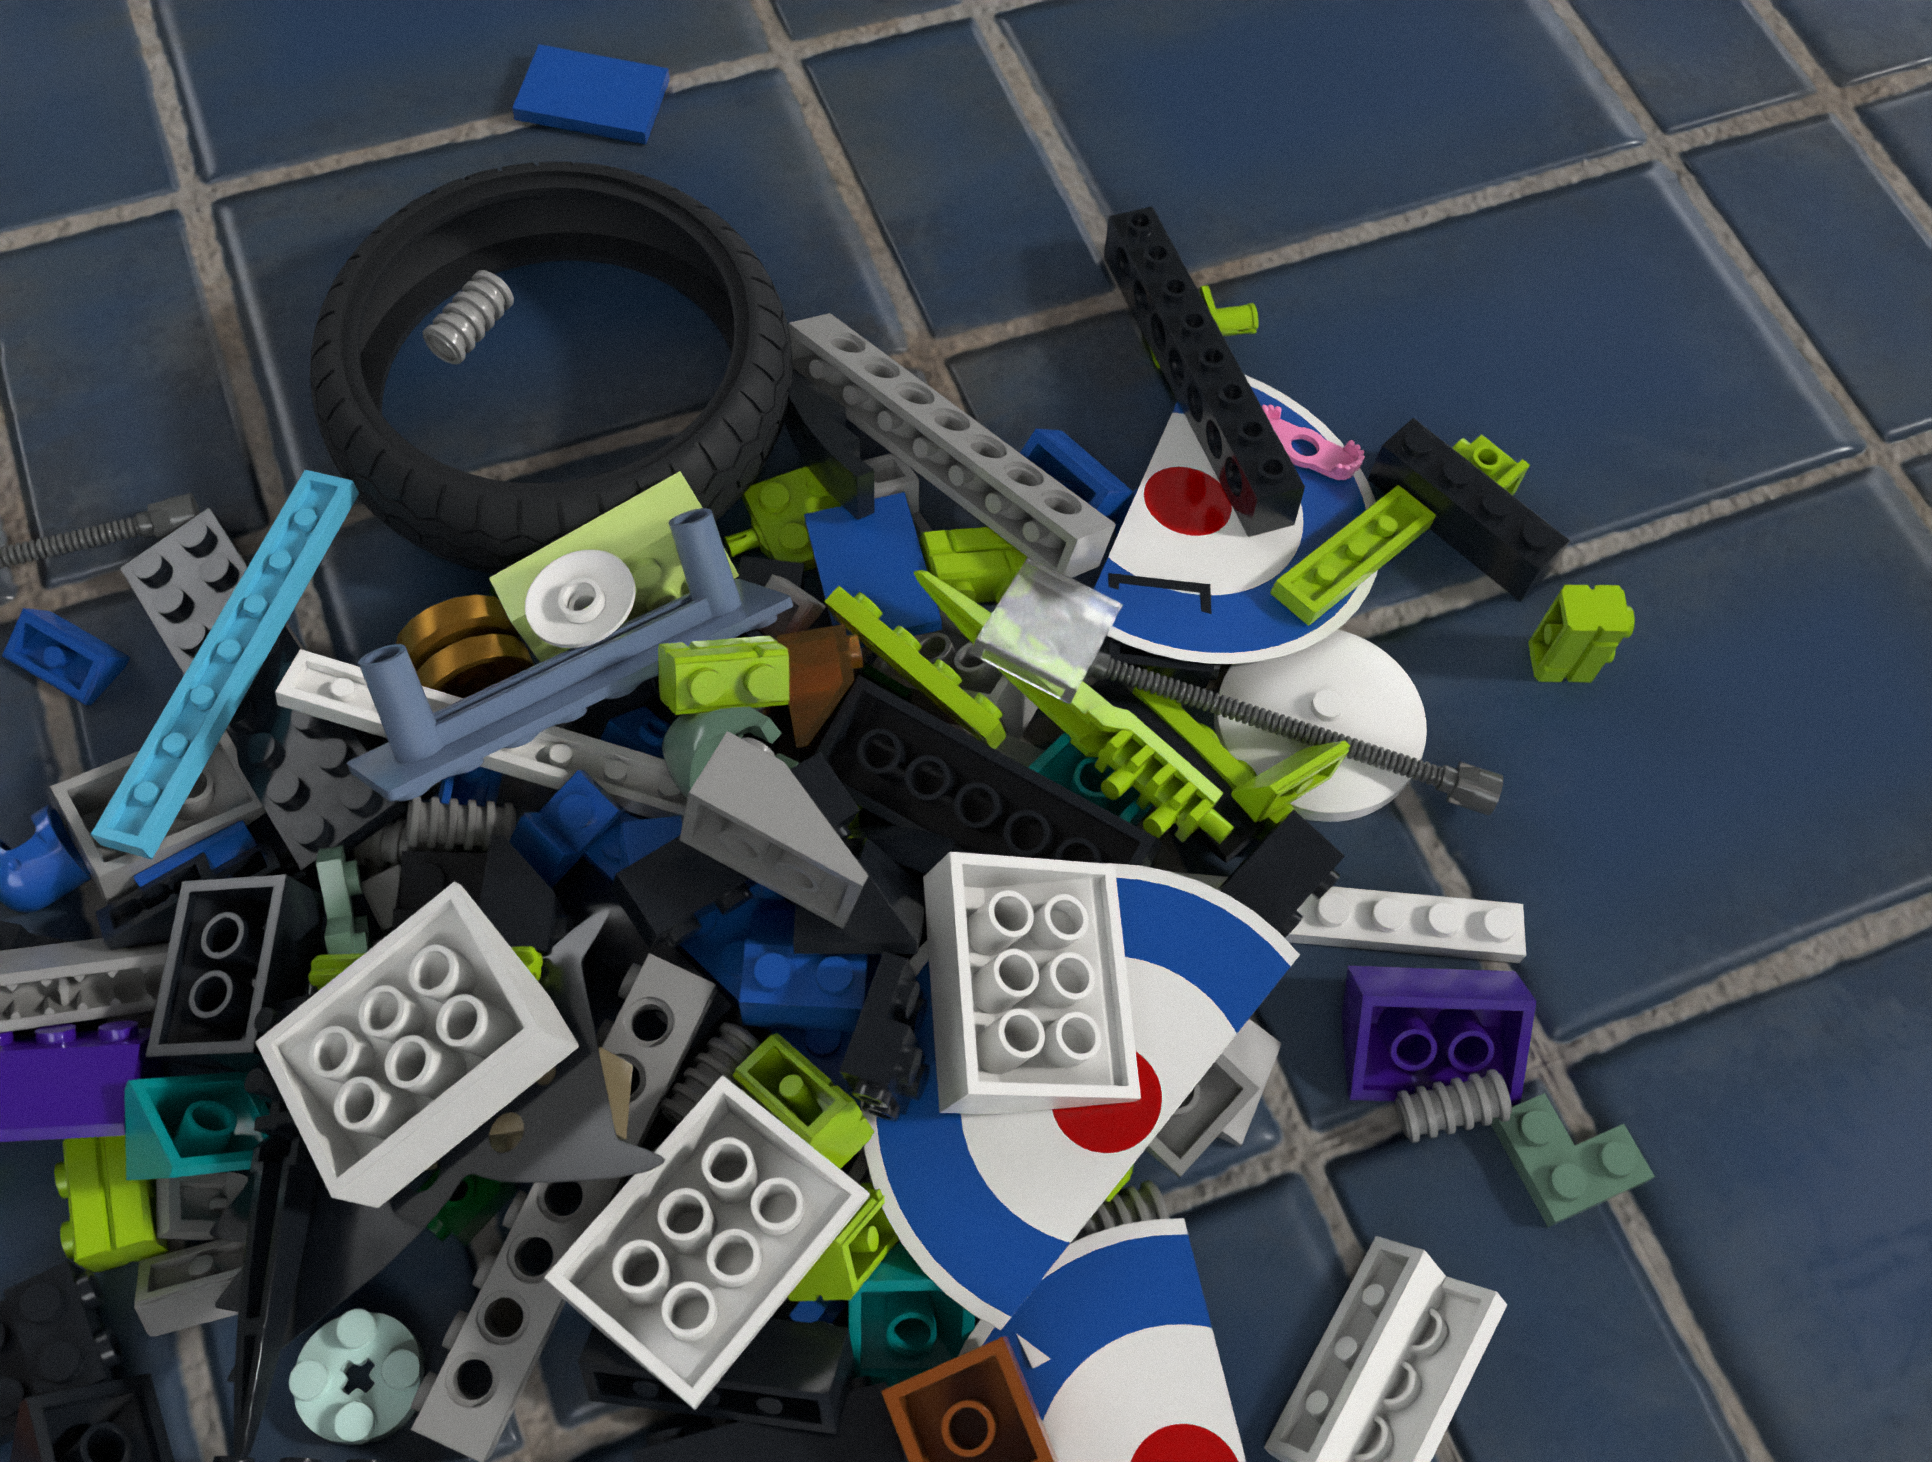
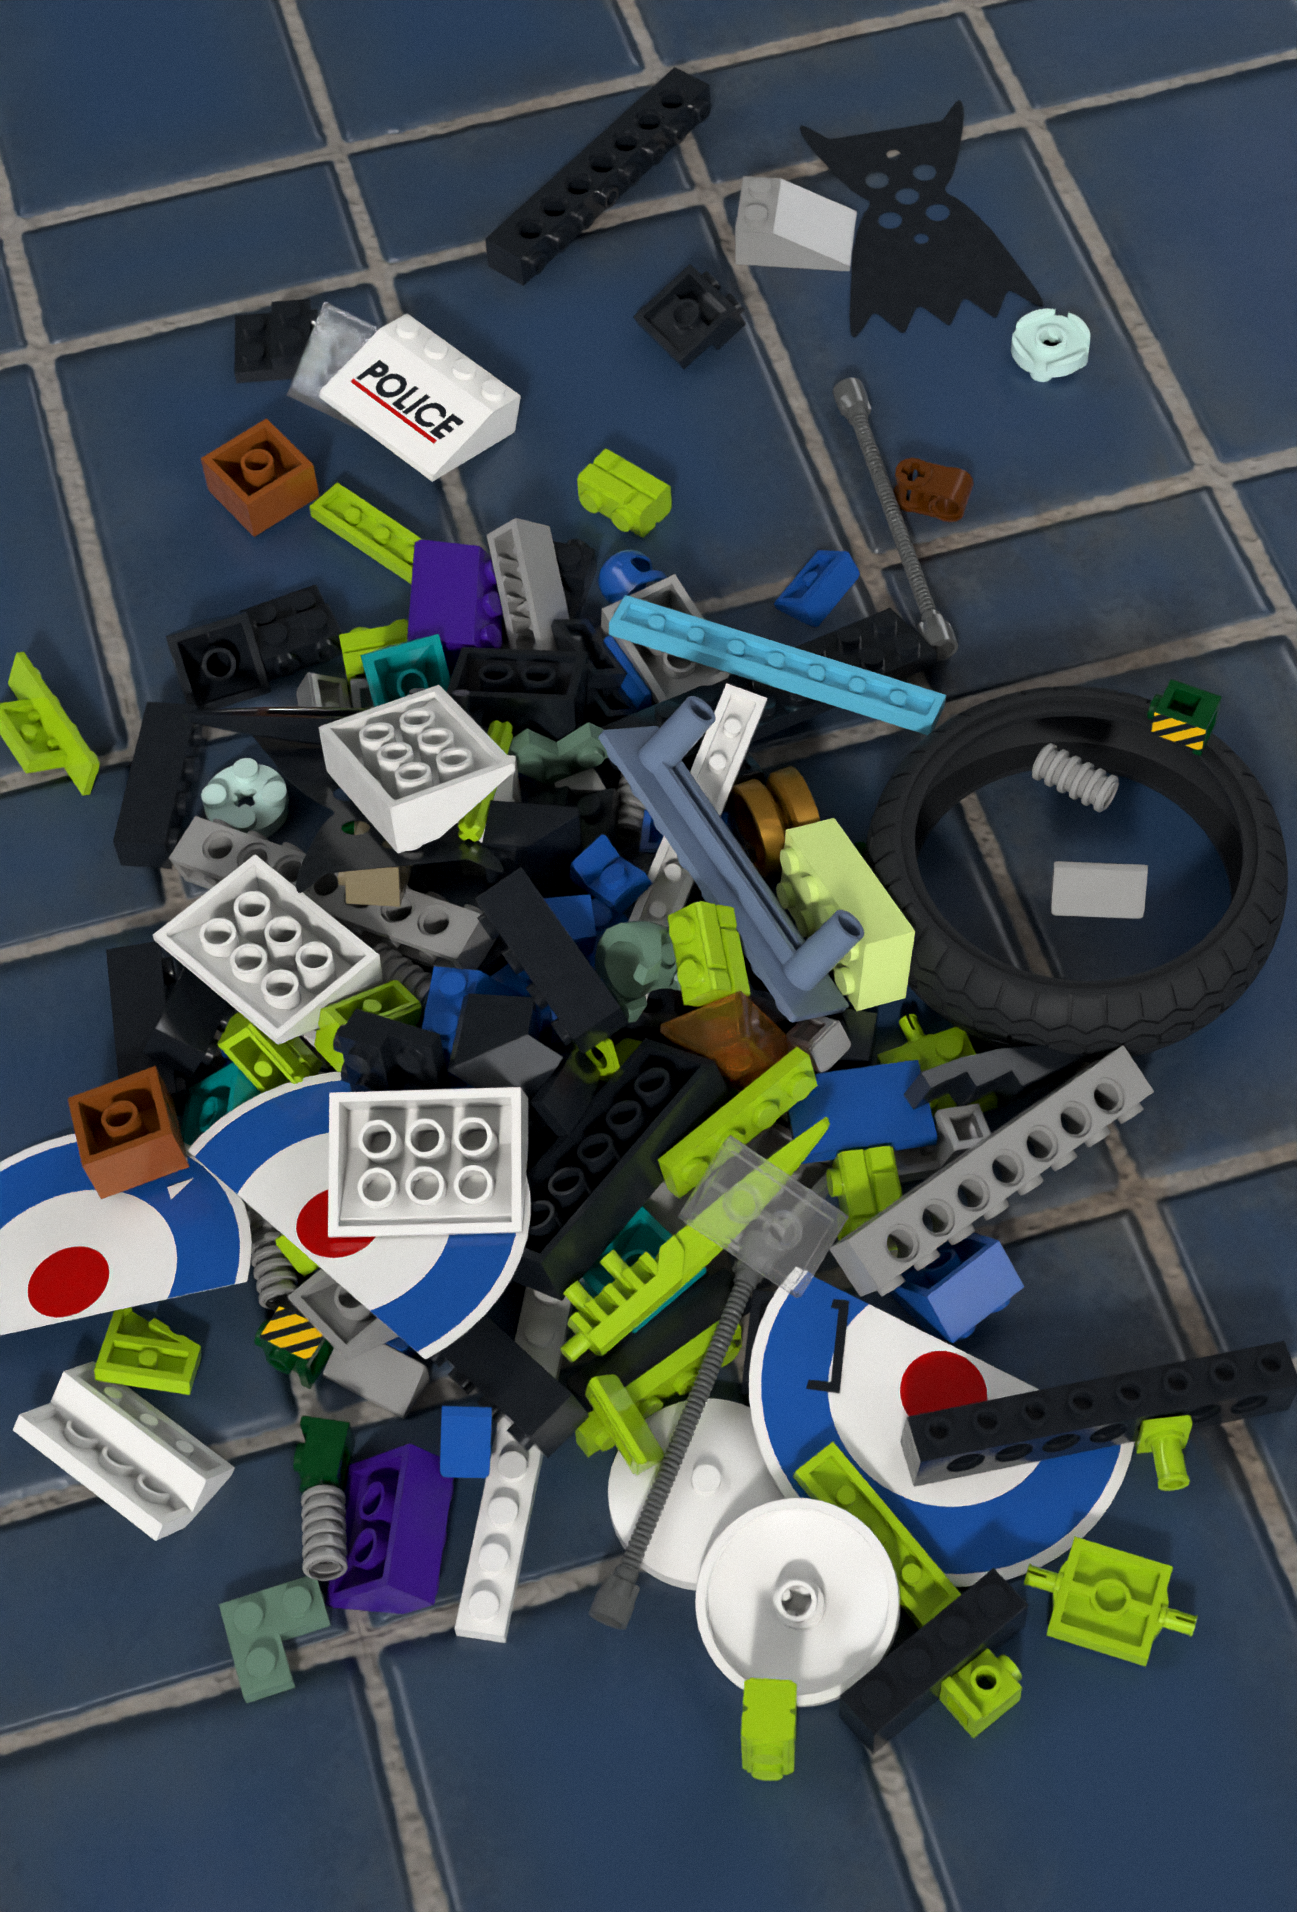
camera: 105 degrees right, 5 degrees down
(387, 215) = (1185, 715): none -> dark green brick
(457, 823) = (629, 824): light grey piece -> none
(568, 586) = (790, 863): white dish -> none
(626, 302) = (1098, 889): none -> light grey slope
(767, 827) = (530, 947): light grey slope -> none
(1221, 1178) = (293, 1345): none -> brick
(1264, 1362) = (147, 1355): none -> lime wing
(1328, 944) = (465, 1441): none -> blue slope
(1330, 460) = (1035, 1494): bright pink piece -> none
(1359, 1120) = (325, 1453): none -> dark green brick
(1371, 376) = (1110, 1601): none -> lime plate
(1440, 619) = (798, 1598): none -> white dish

